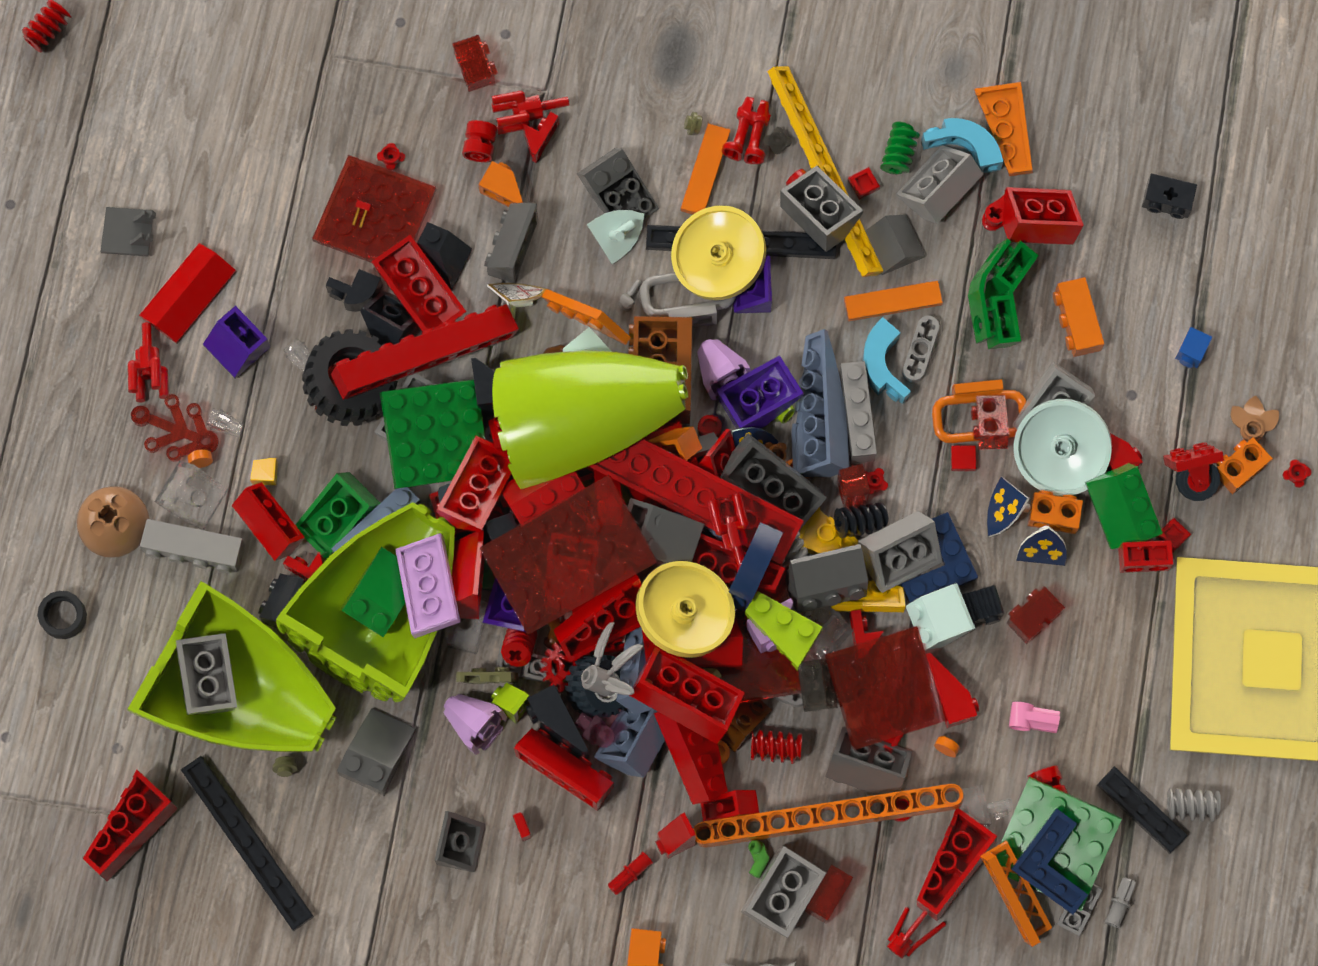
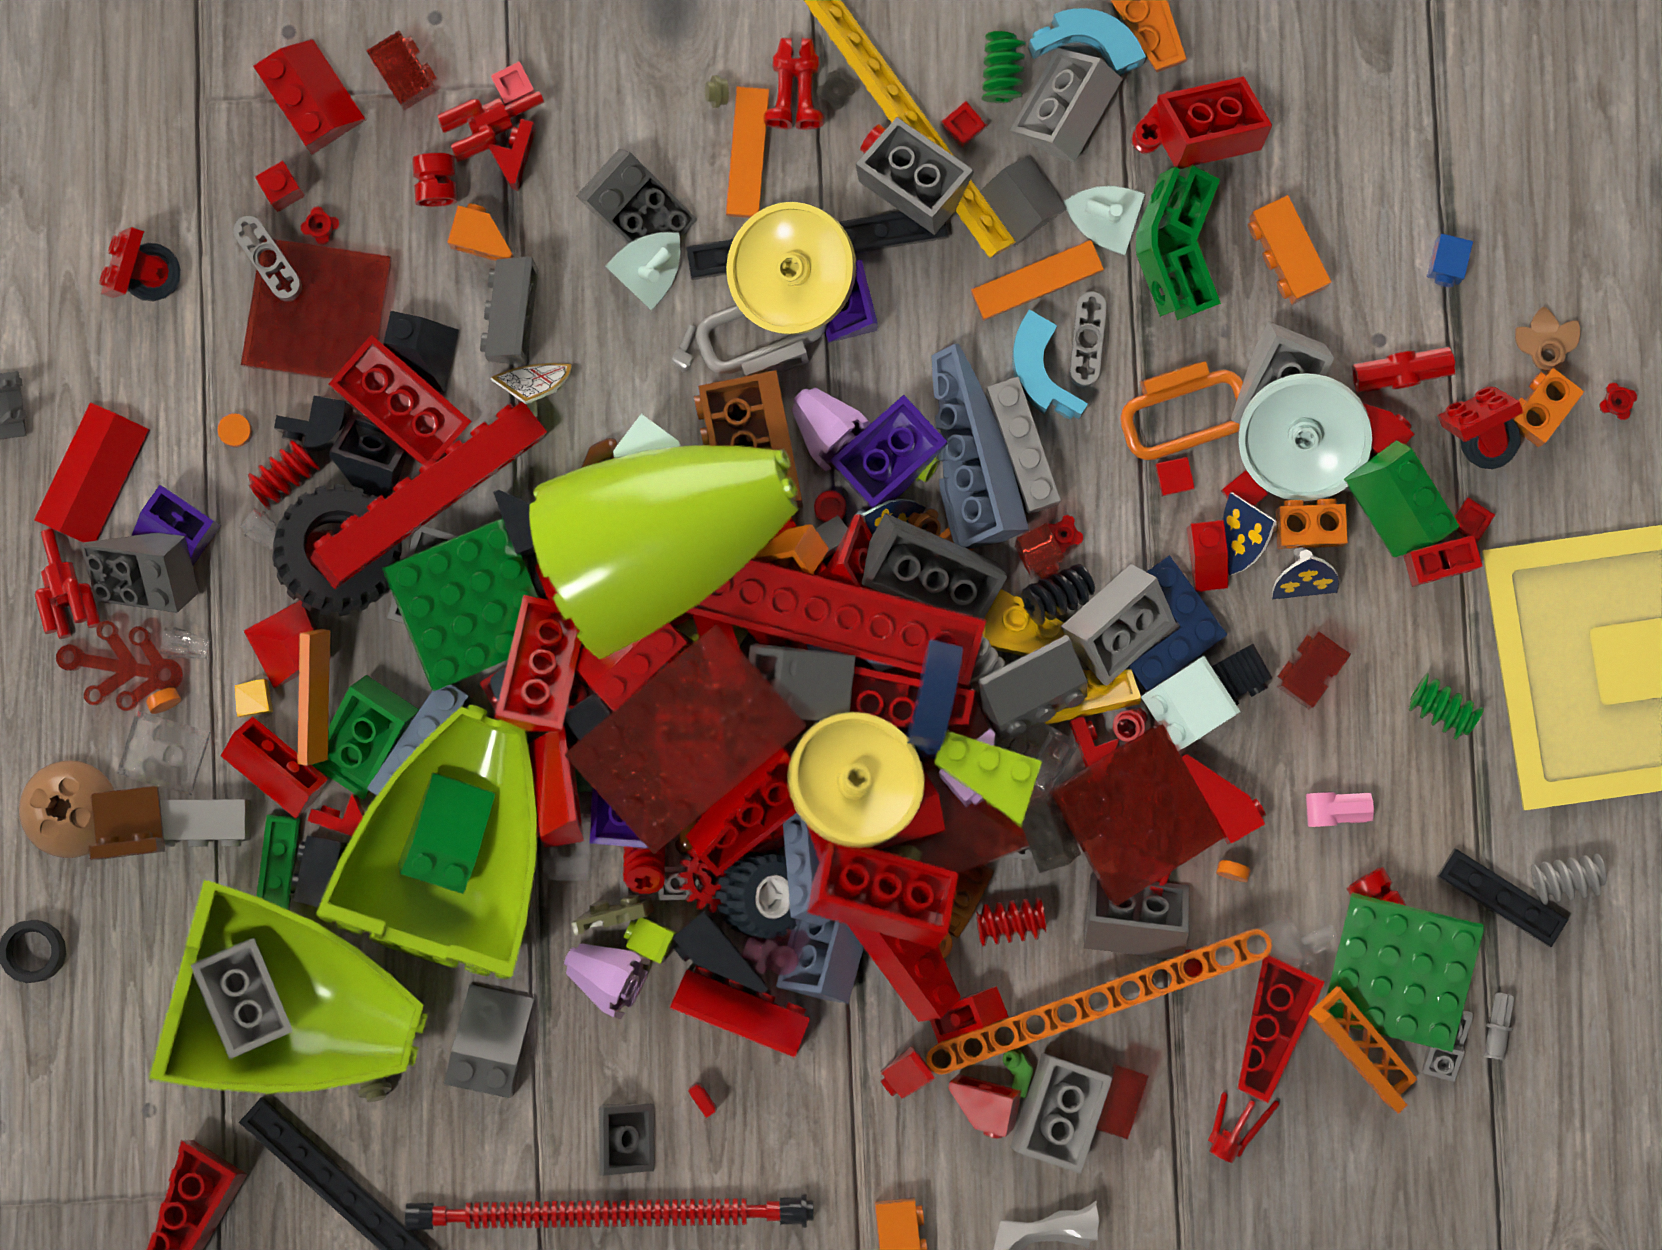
camera: 10 degrees left, 10 degrees up
(154, 535) = (127, 823): none -> reddish brown bracket
(207, 364) = (141, 571): none -> dark grey slope
(256, 584) = (278, 860): none -> green tile
(260, 159) = (142, 269): none -> plate
(296, 283) = (234, 430): none -> orange tile
(298, 440) = (278, 642): none -> red slope
(308, 475) = (313, 696): none -> orange tile
(323, 319) = (281, 474): none -> red piece
(349, 160) = (261, 233): none -> light grey beam
(363, 206) = (298, 305): piece -> none
(369, 123) = (280, 186): none -> red brick
(404, 66) = (309, 94): none -> red slope
(427, 585) = (506, 816): lavender tile -> none
(549, 87) = (512, 83): none -> coral plate
(566, 920) = (787, 1211): none -> red hose
(585, 314) = (630, 397): orange wing -> none
(605, 681) = (772, 895): light grey plant -> none
(629, 873) = (856, 1129): red axle -> none
(730, 875) = (986, 1104): none -> slope
(732, 527) = (892, 655): red plant -> none
(888, 622) = (1130, 724): none -> red cone
(952, 267) = (1106, 215): none -> light aqua shield
(976, 517) = (1208, 555): none -> red slope
(994, 422) = (1207, 421): clear red brick -> none
(1013, 476) = (1245, 488): none -> red tile
(1034, 862) = (1381, 1007): dark blue plate -> none
(1125, 662) = (1444, 707): none -> green piece
(1144, 417) = (1403, 369): none -> red piece
(1181, 194) = (1391, 47): black brick -> none

